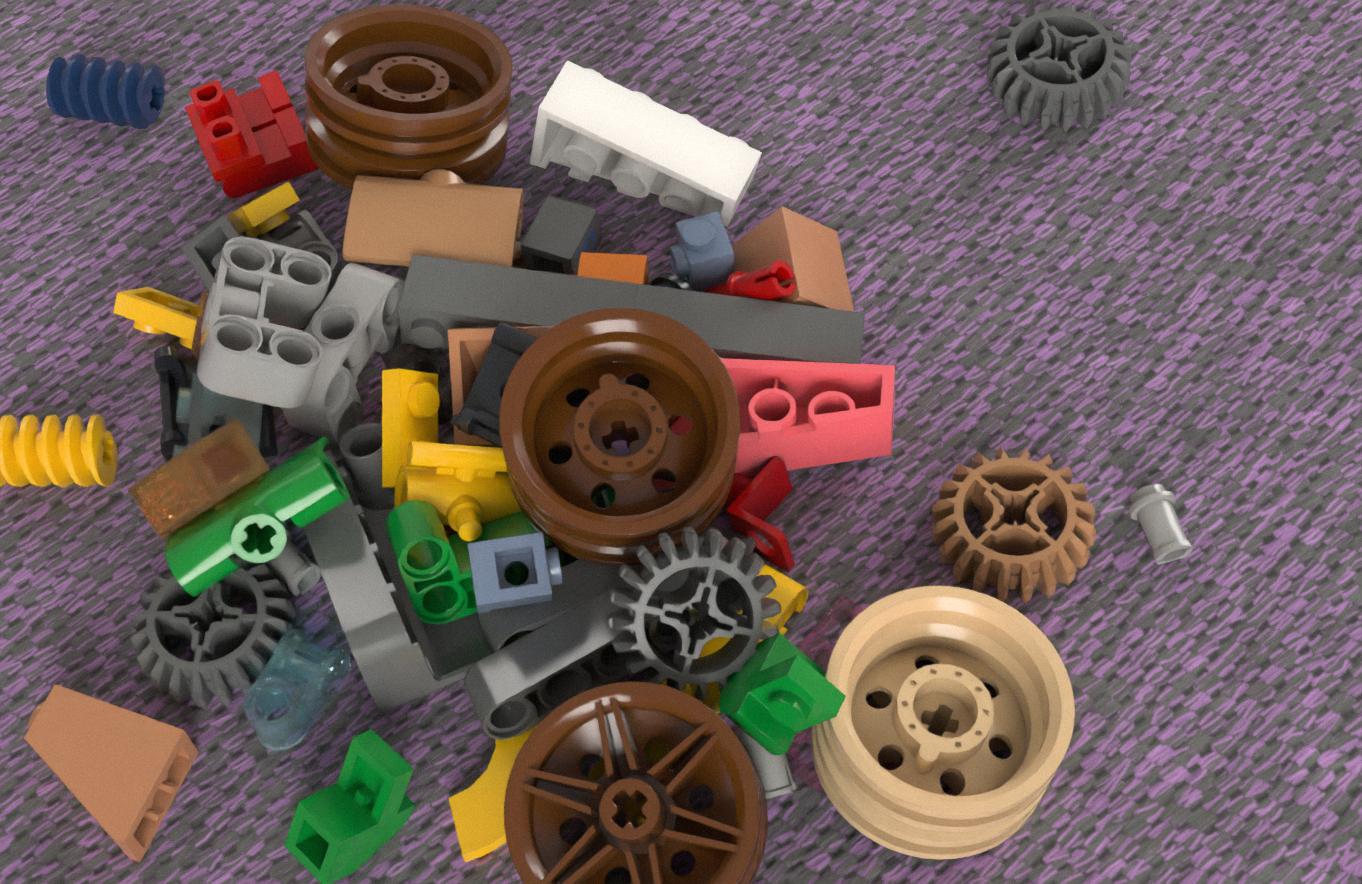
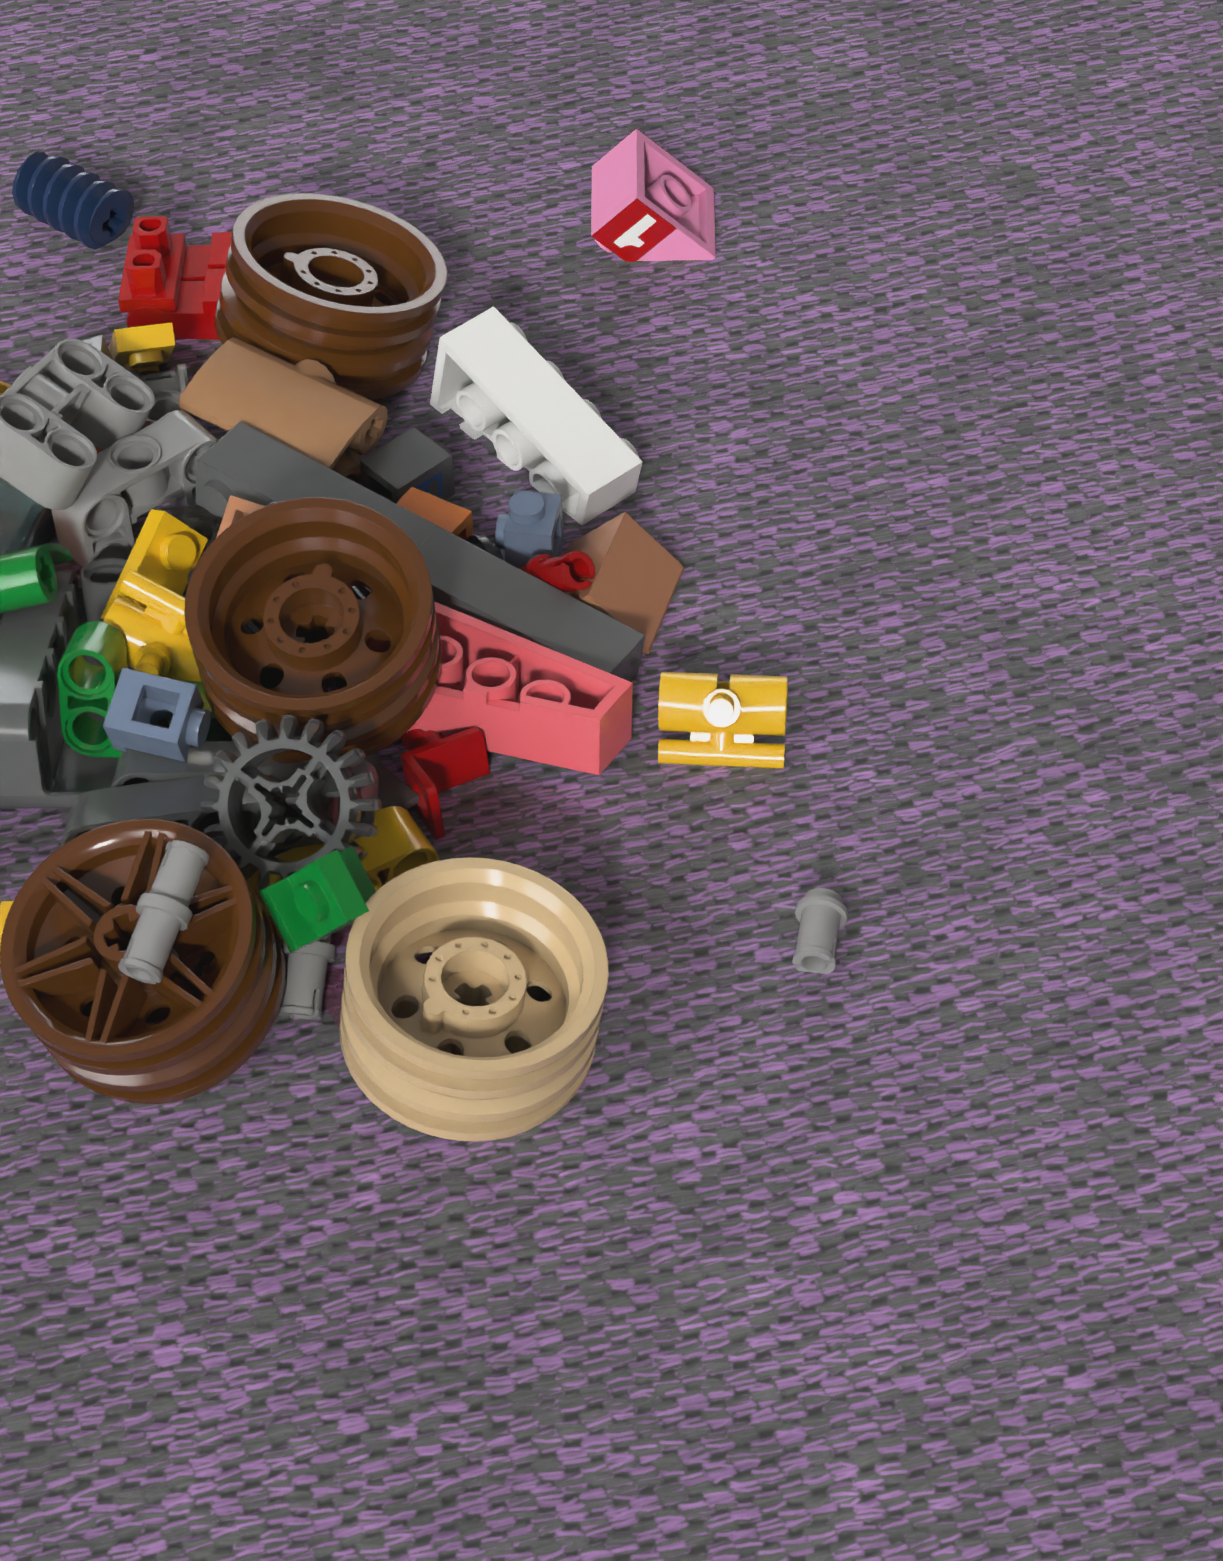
camera: 20 degrees right, 10 degrees down
(665, 778) = (163, 912): none -> light grey pin
(967, 361) = (722, 719): none -> yellow pin
(1021, 493) = (671, 875): medium nougat gear -> none
(1061, 53) = (1036, 499): dark grey gear -> none

